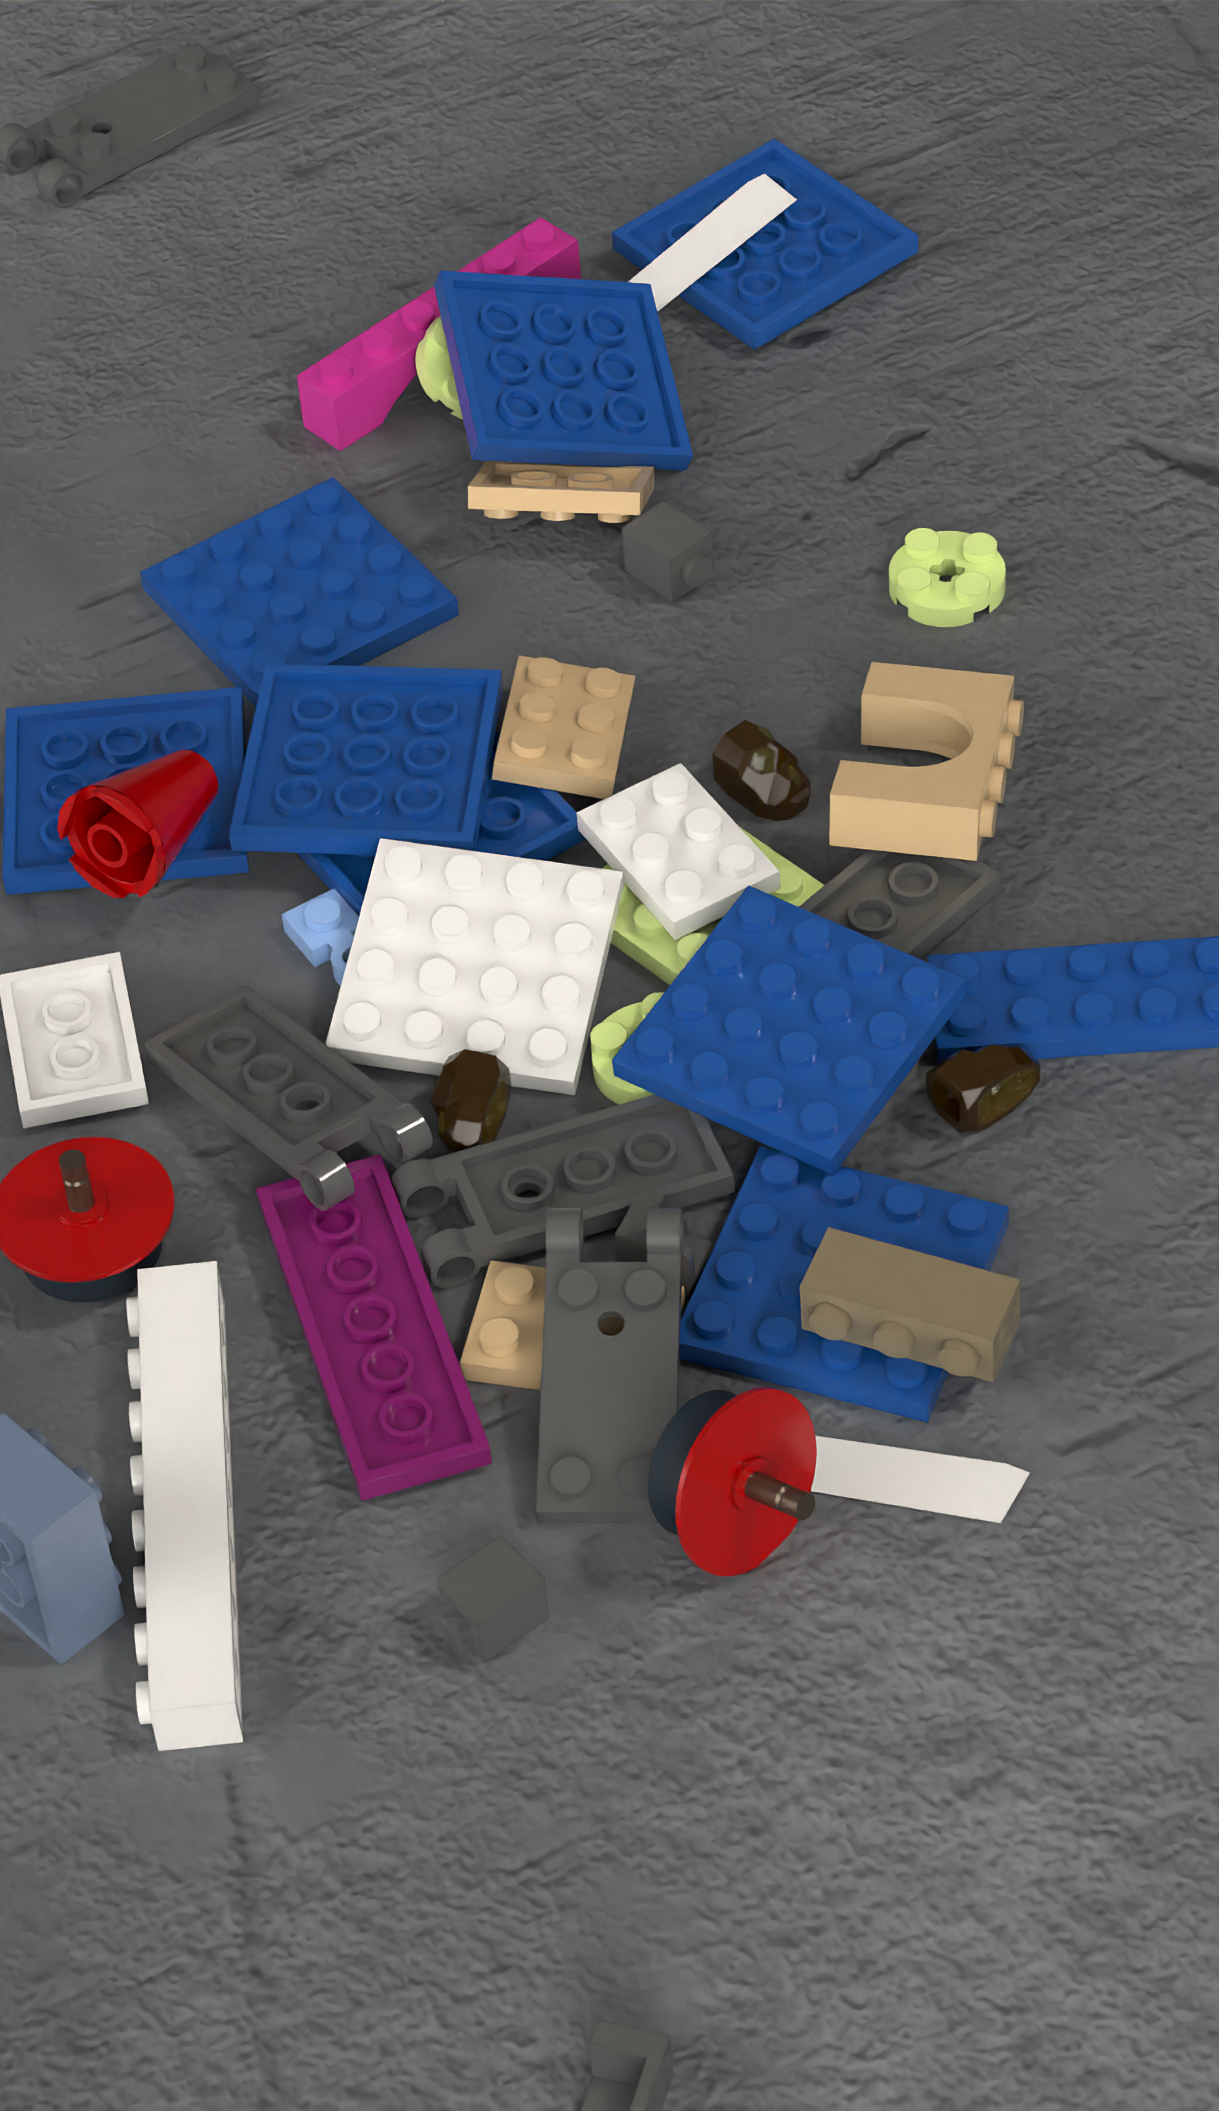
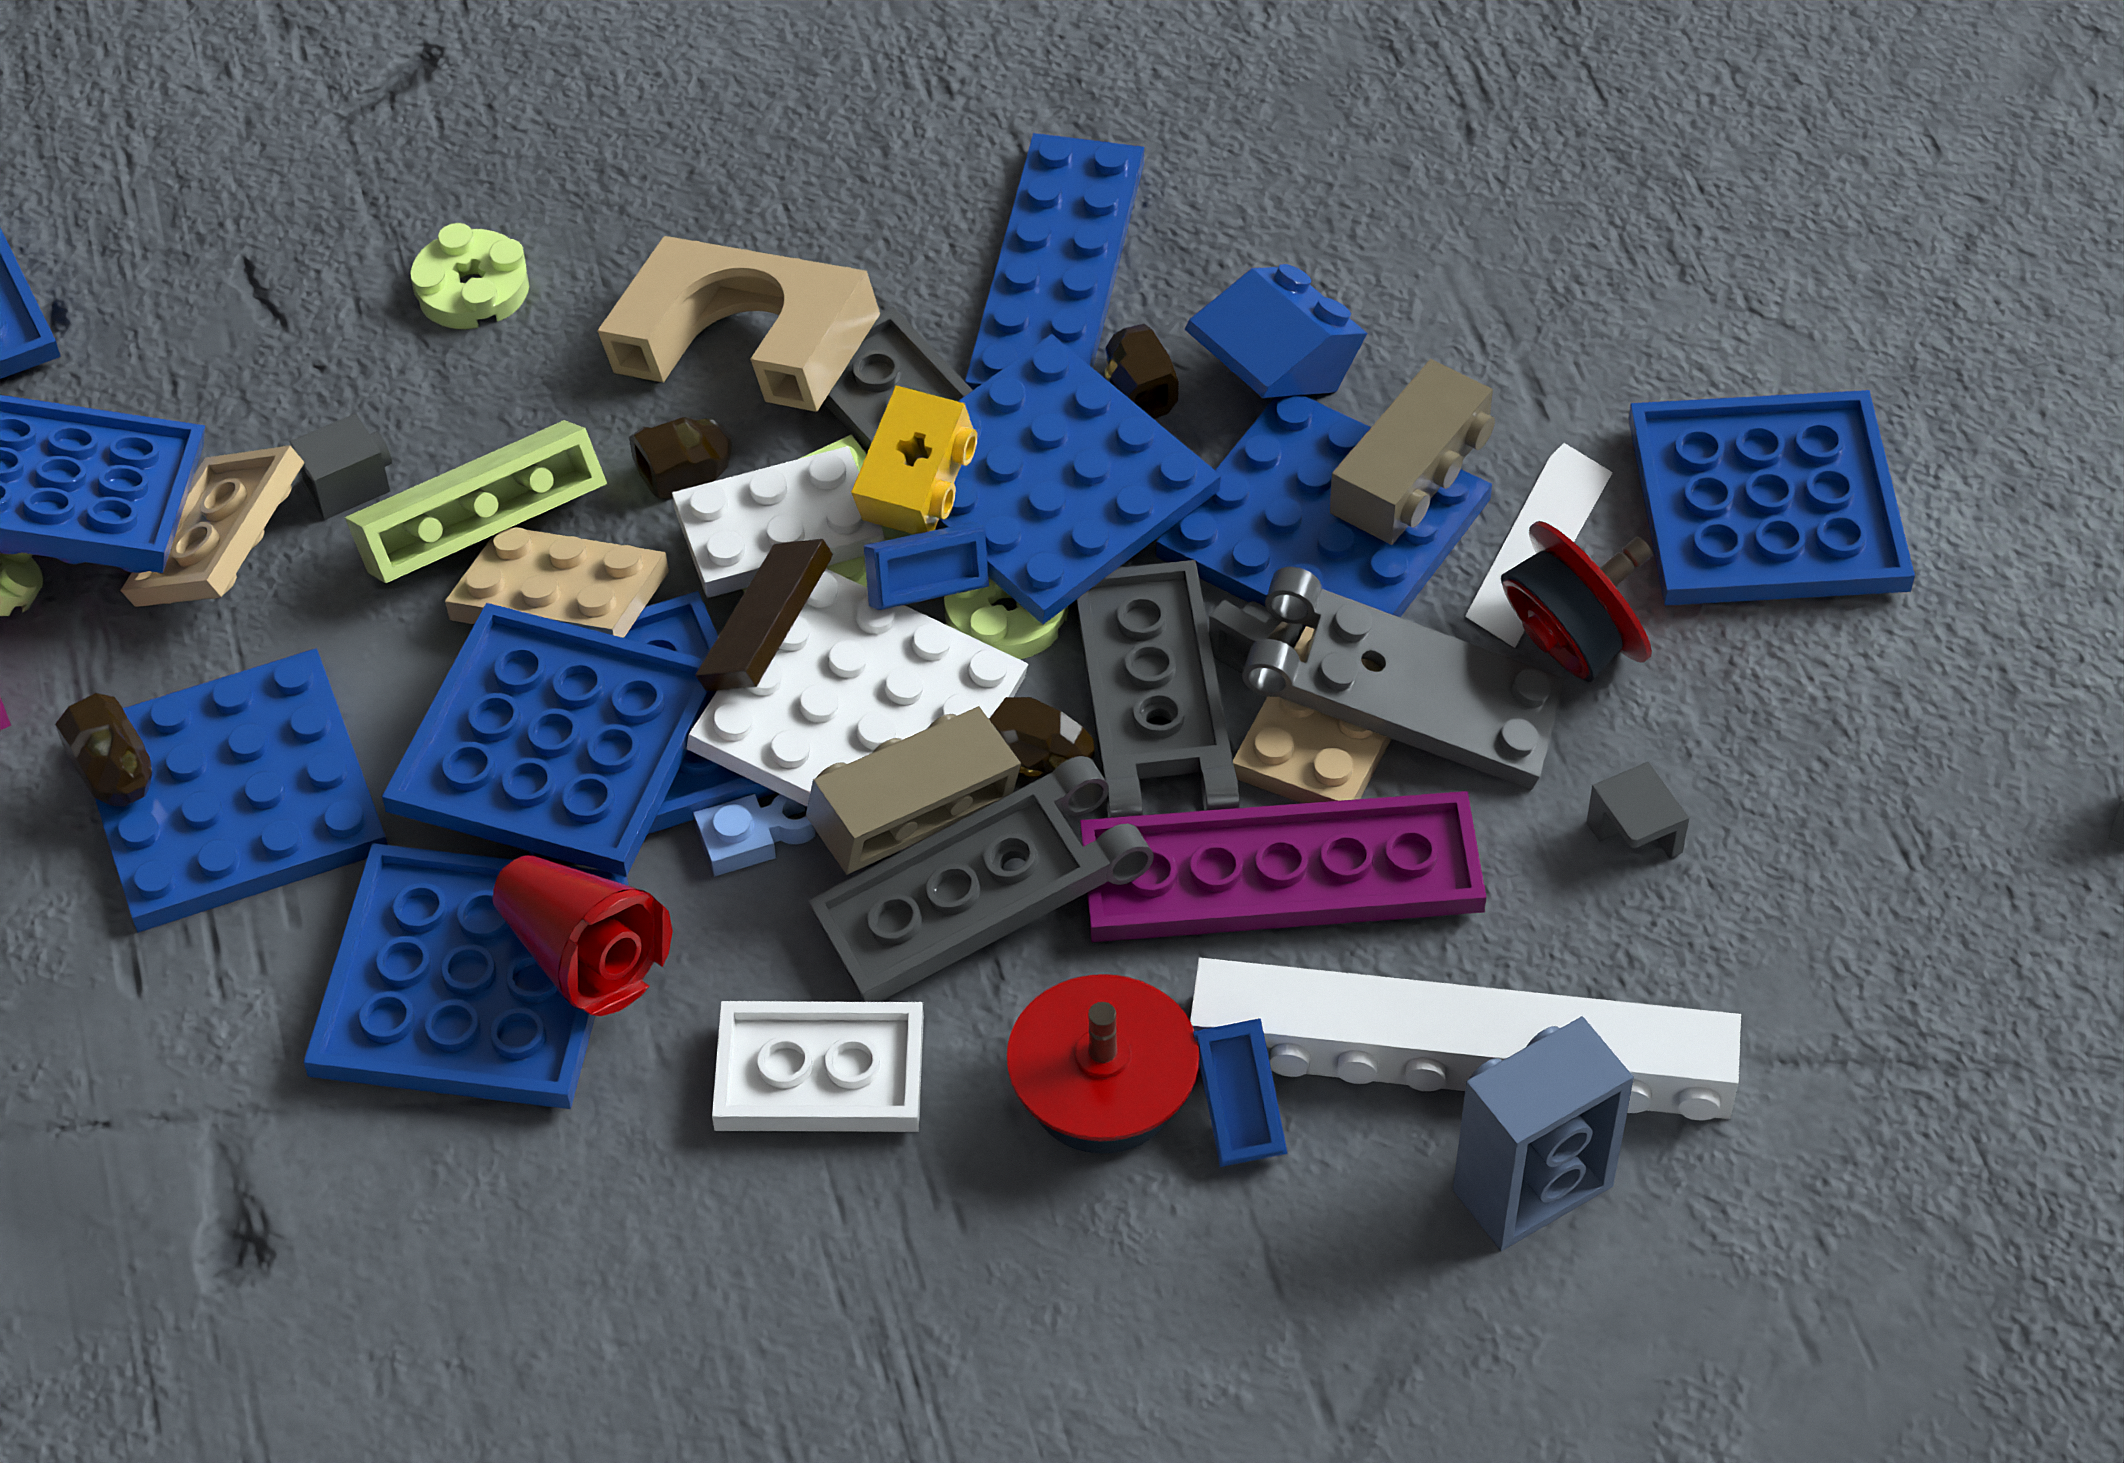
camera: 80 degrees left, 5 degrees up
(82, 1331) = (1240, 1092): none -> blue tile
(284, 492) = (105, 750): none -> dark brown rock
(352, 1002) = (911, 788): none -> dark tan brick
(523, 849) = (764, 615): none -> dark brown tile
(623, 950) = (926, 565): none -> blue tile
(643, 643) = (475, 500): none -> yellowish green brick
(722, 894) = (914, 462): none -> yellow brick
(990, 1660) = (1769, 498): none -> blue plate
(1048, 1168) = (1279, 333): none -> blue slope

